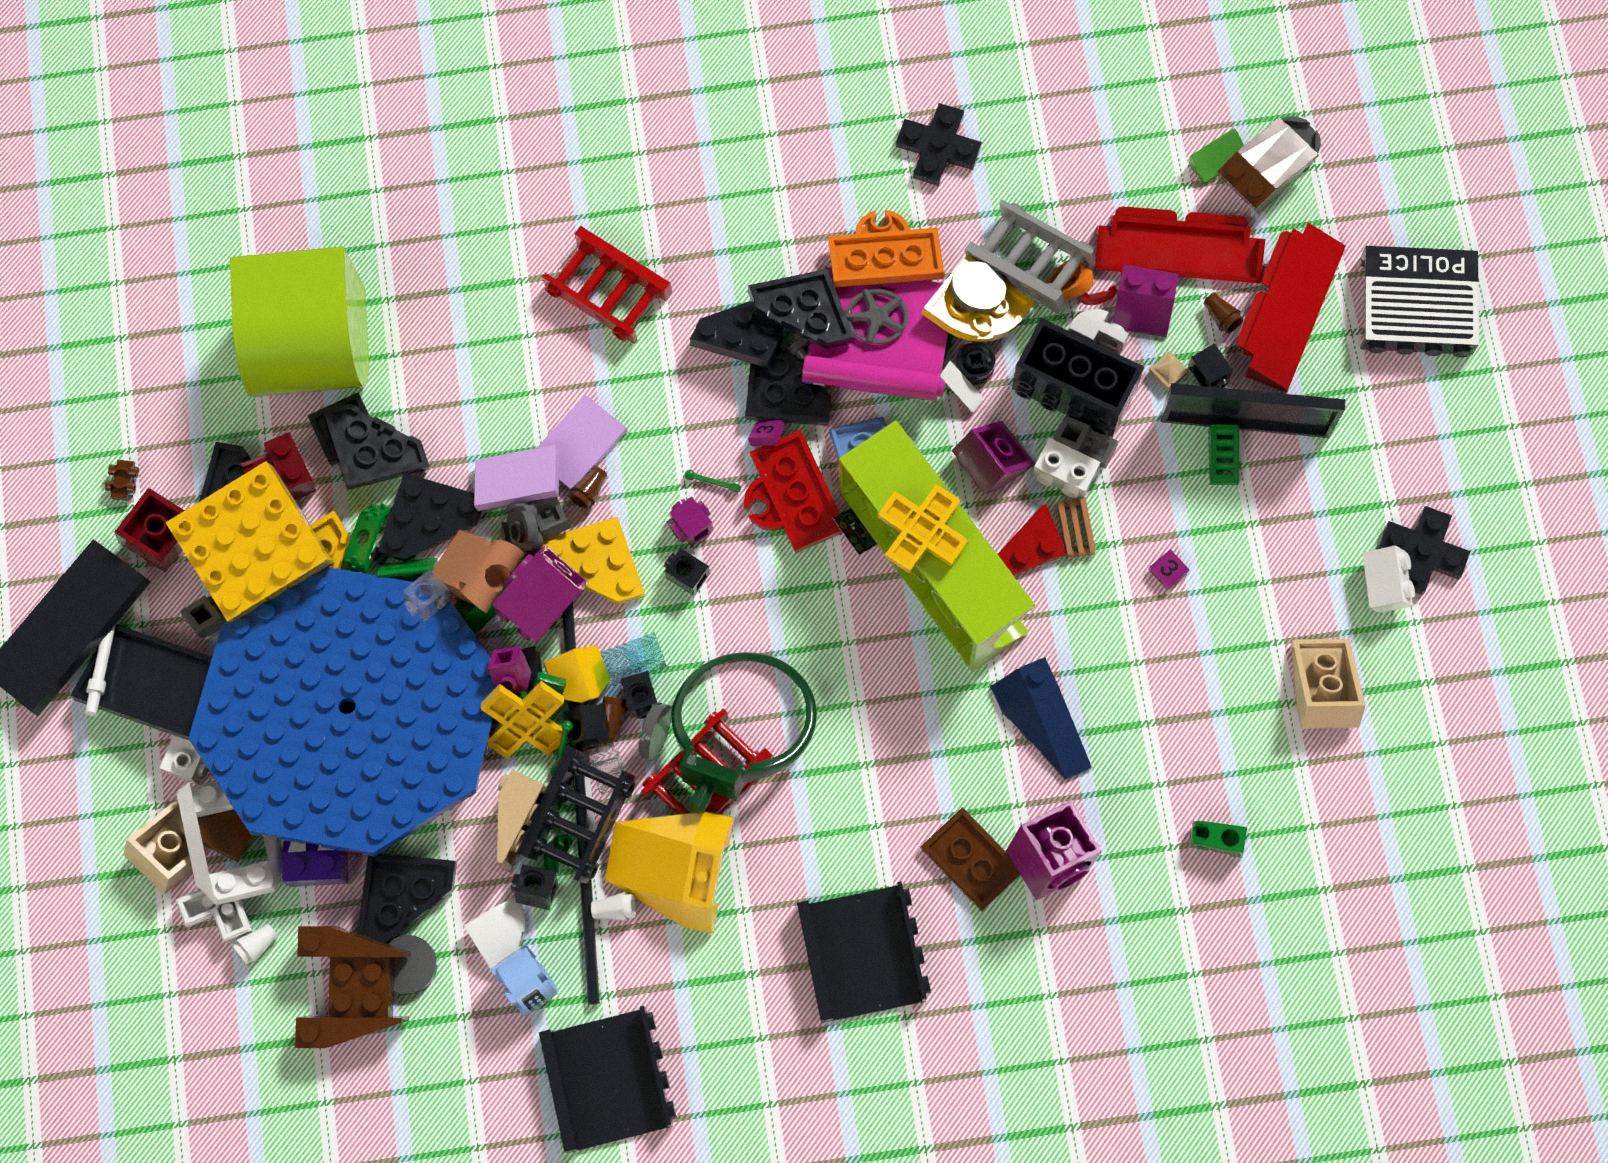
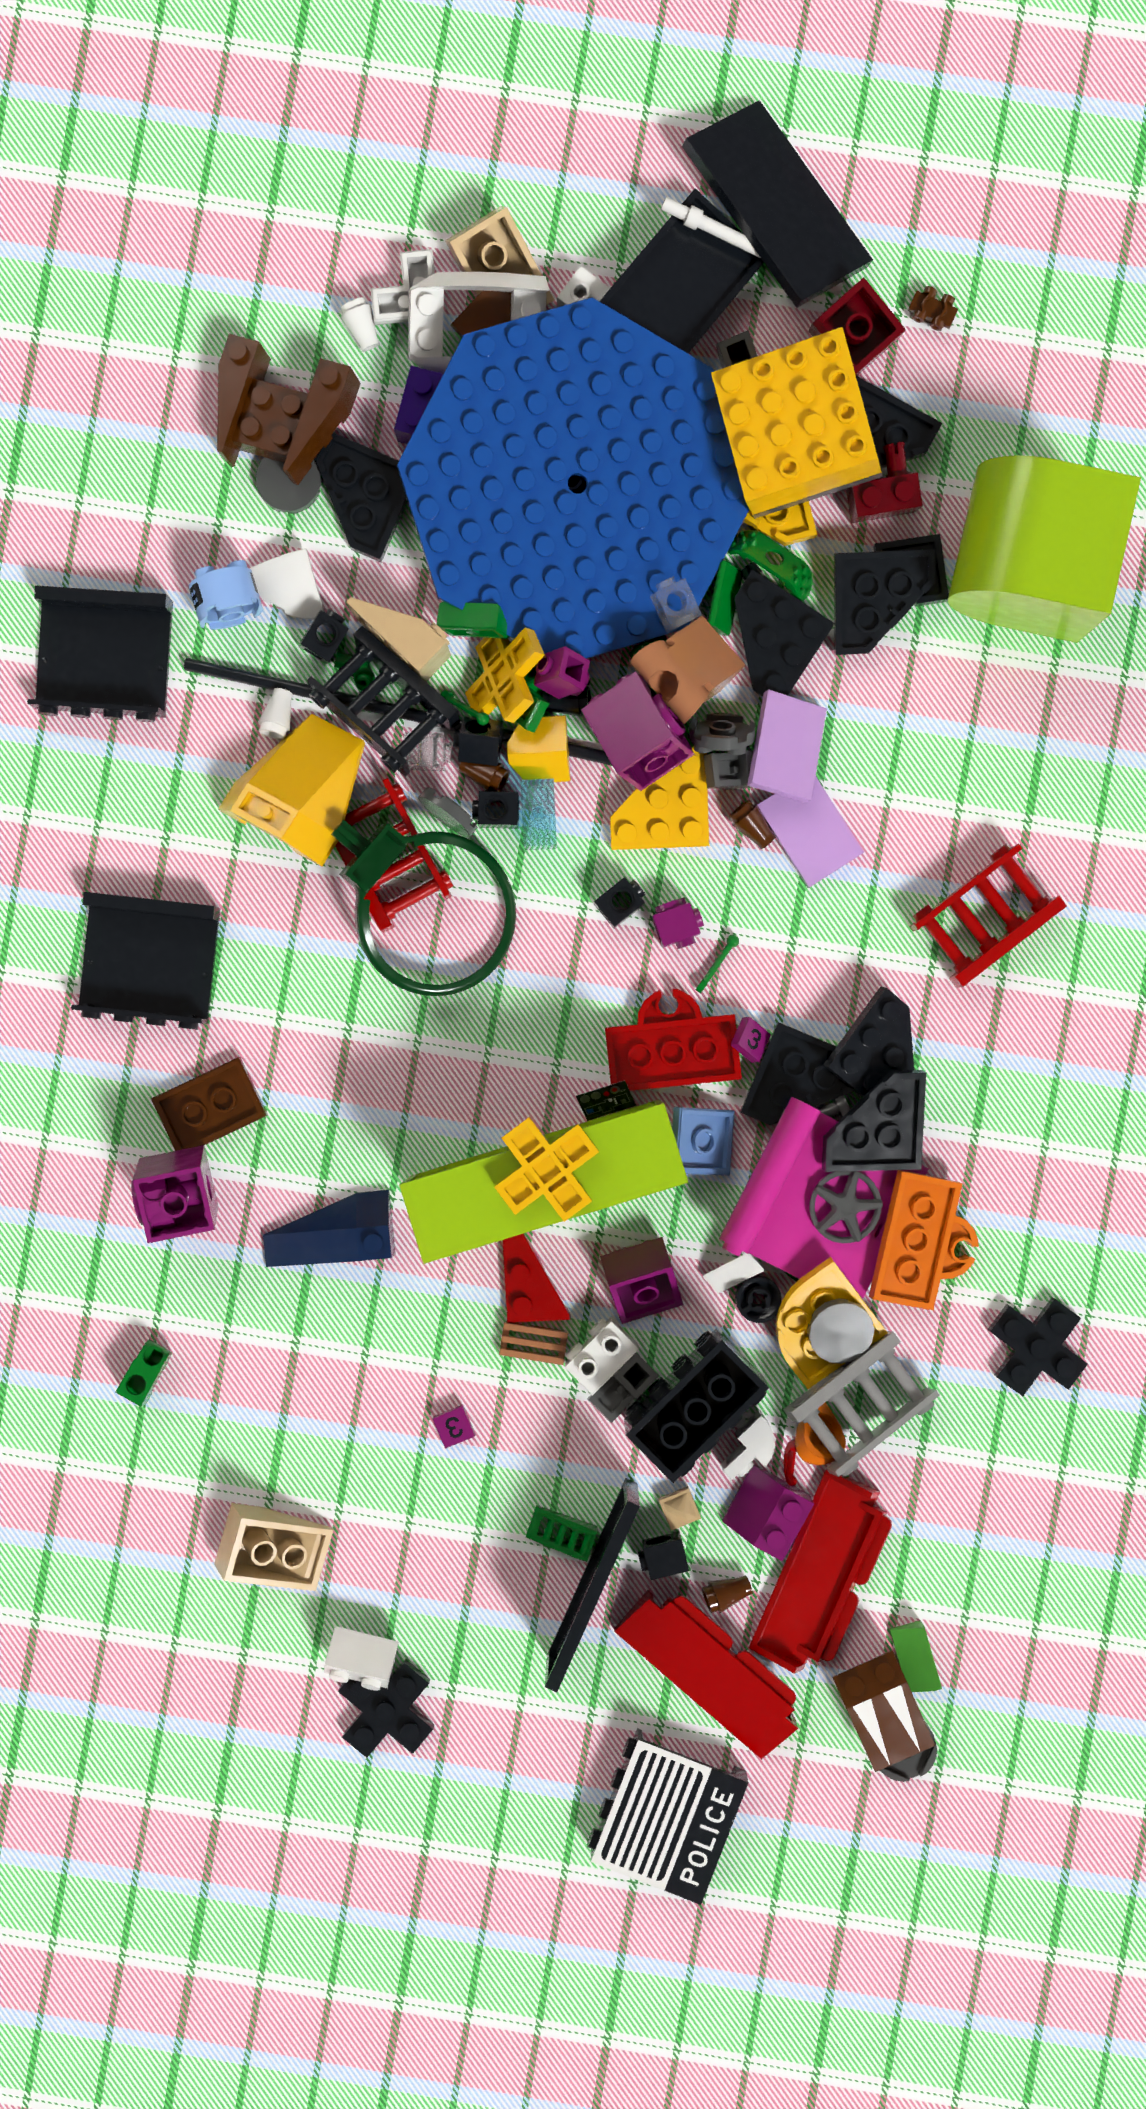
camera: 100 degrees right, 15 degrees up
(486, 755) = (474, 620): none -> green slope

